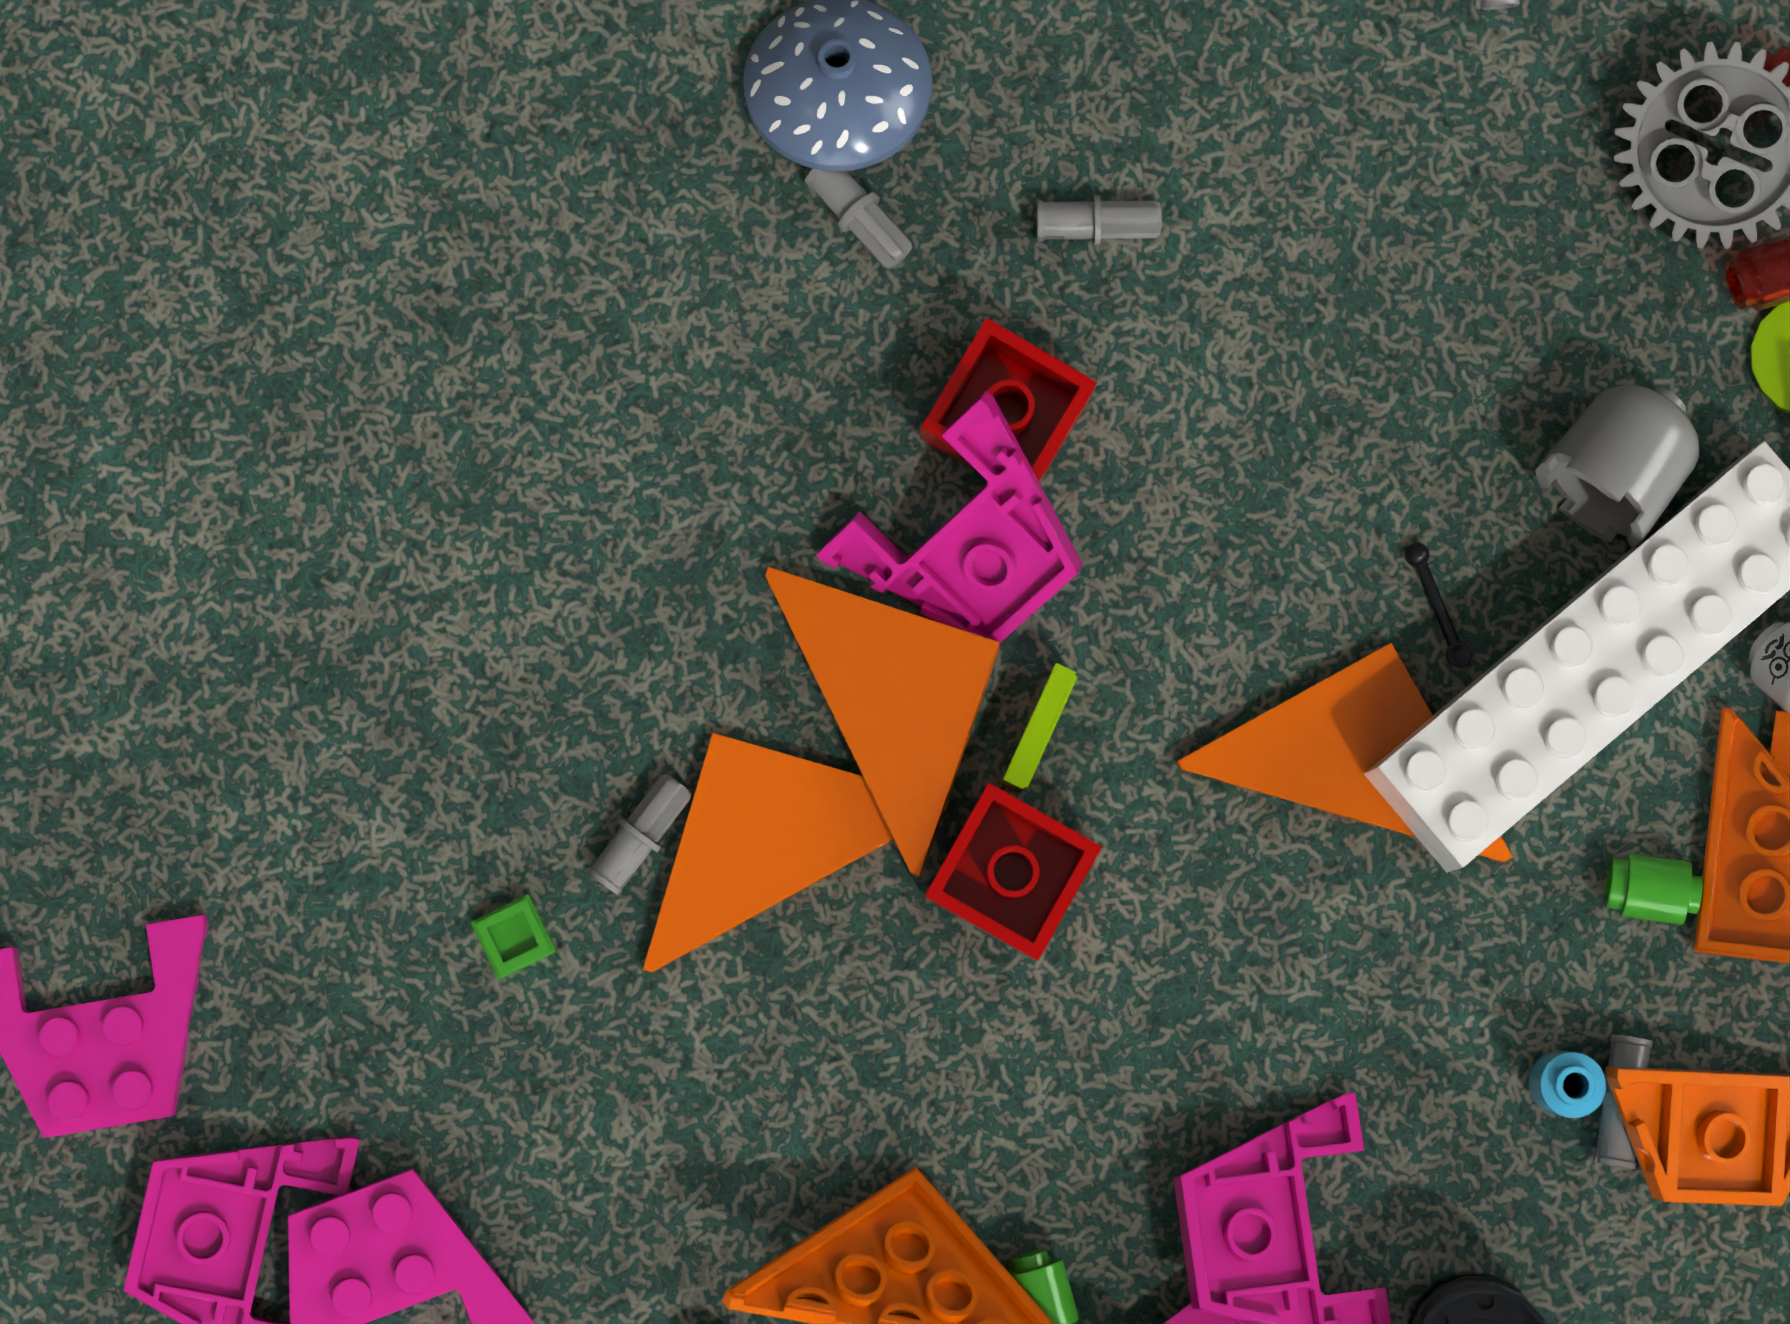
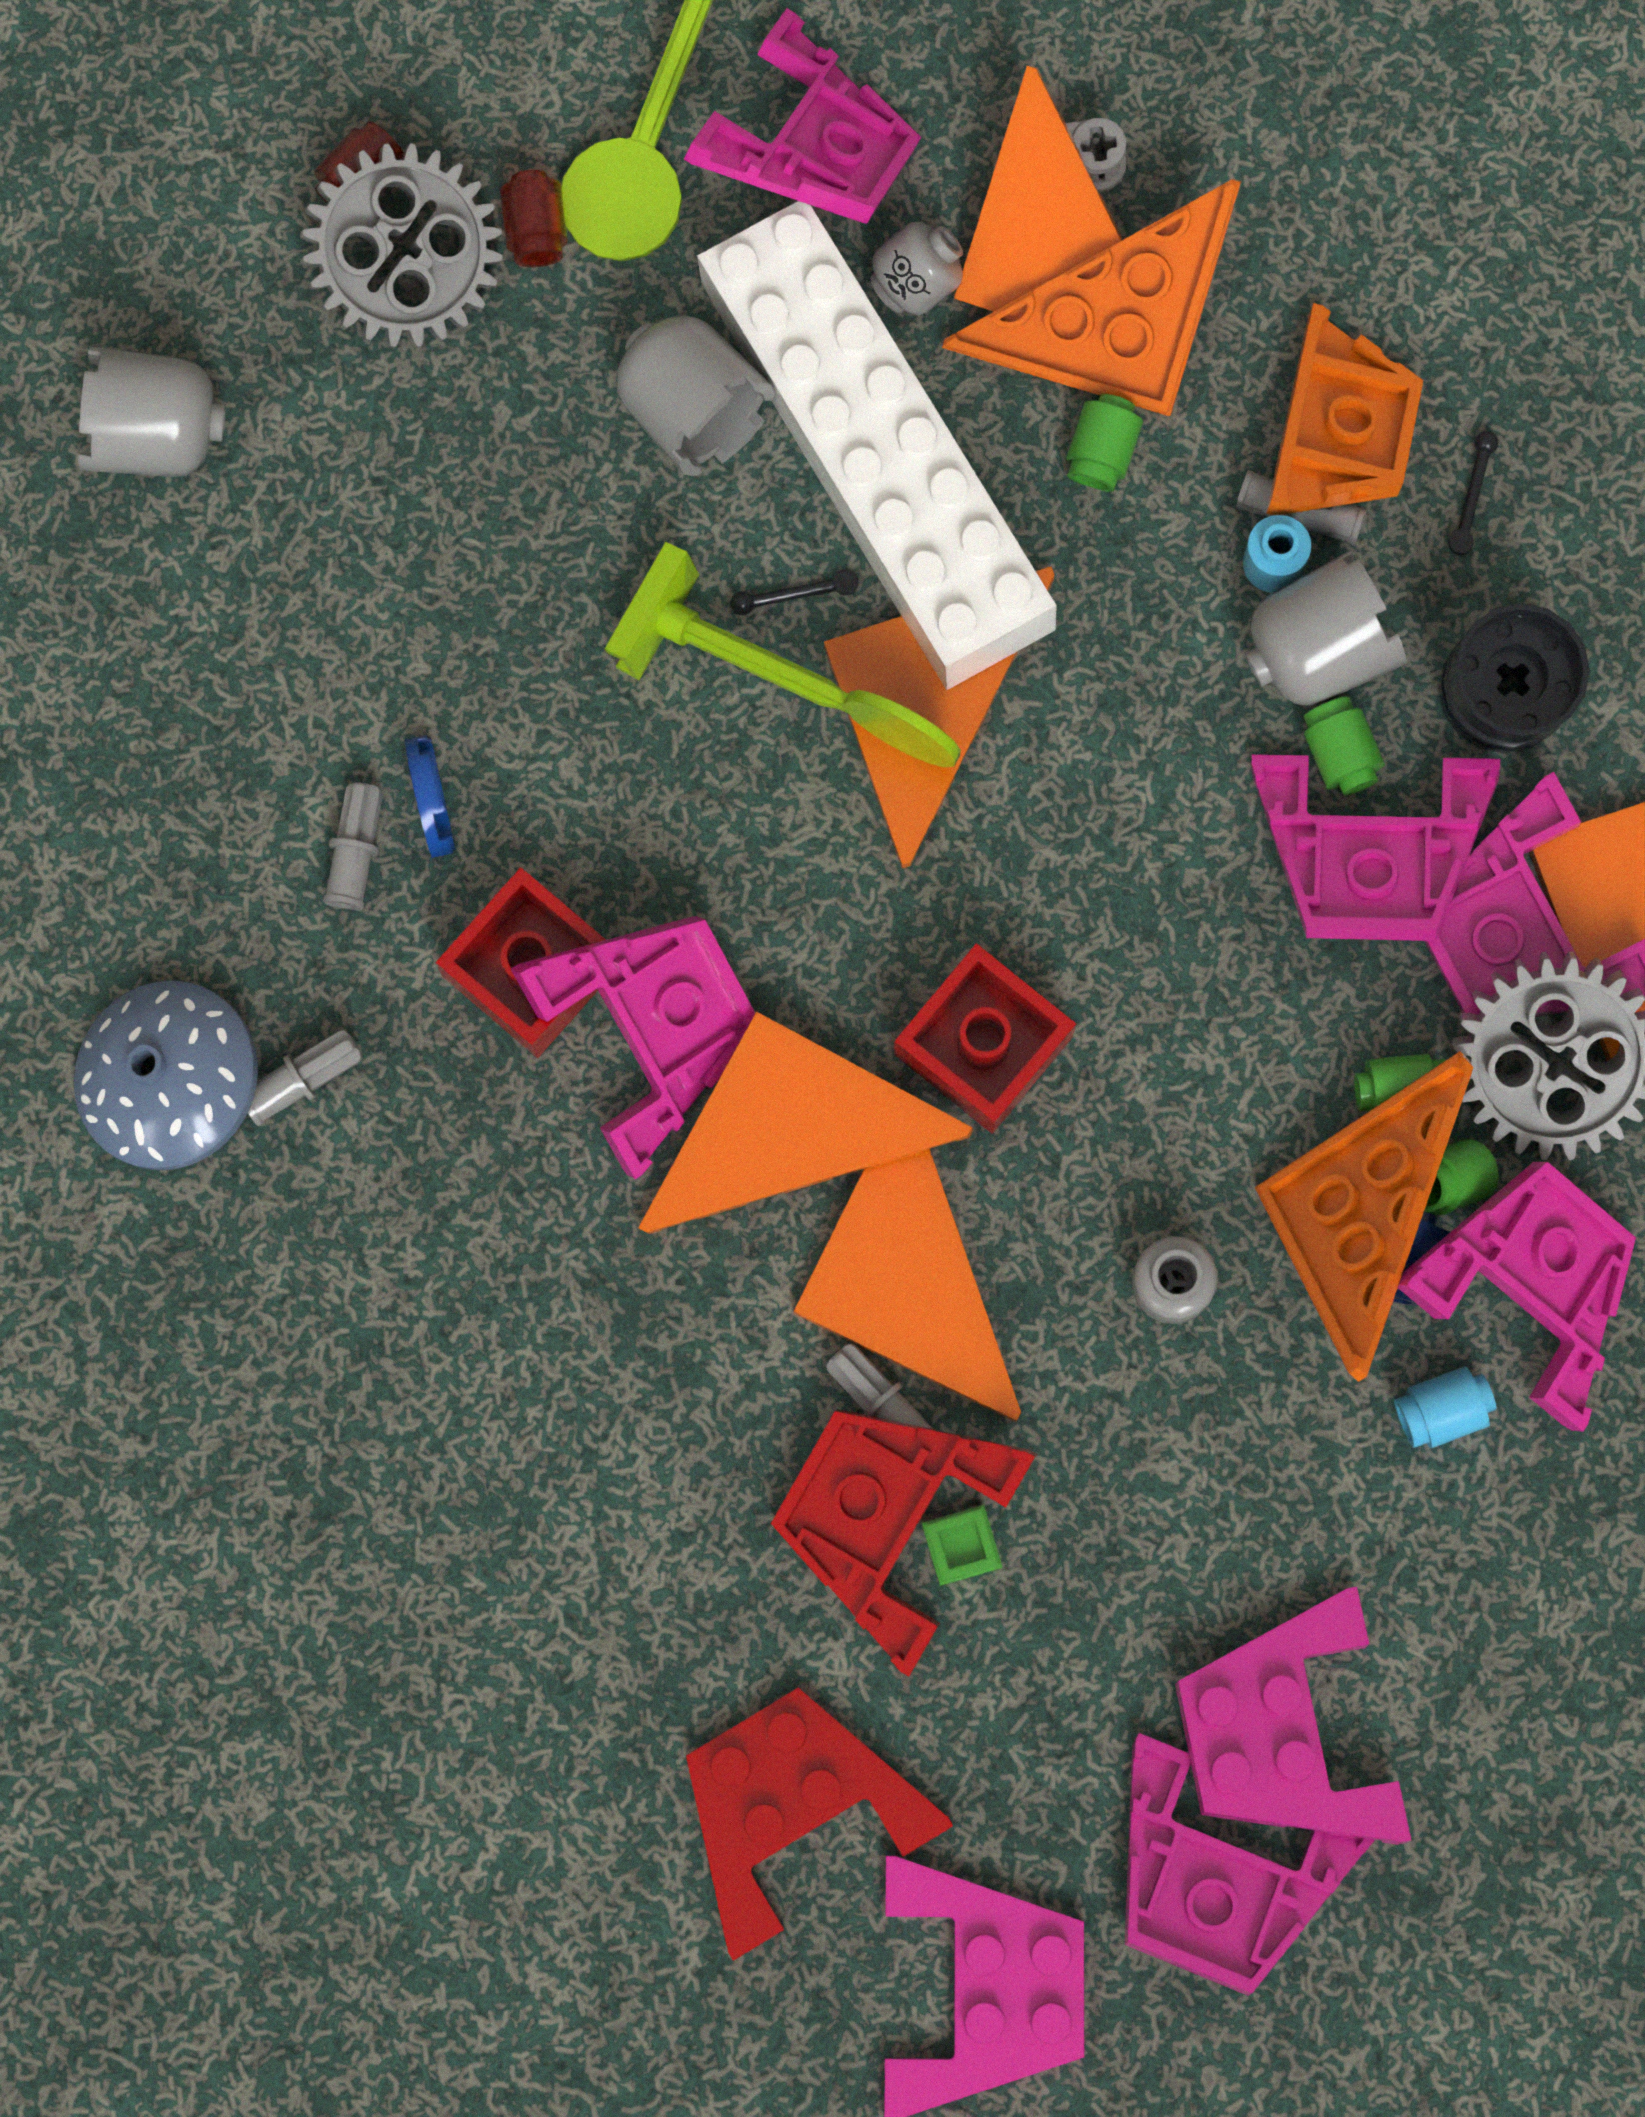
camera: 75 degrees left, 5 degrees down
(256, 798) = (775, 1784): none -> red wing
(537, 834) = (863, 1502): none -> red wing
(804, 1126) = (1181, 1257): none -> light grey head
(1040, 728) = (847, 989): lime tile -> none
(1163, 282) = (429, 795): none -> blue tile
(1380, 1184) = (1343, 746): none -> bright green brick
(1387, 474) = (660, 613): none -> lime piece
(1489, 1144) = (1322, 634): none -> light grey cylinder
(1621, 1272) = (1461, 540): none -> black hinge

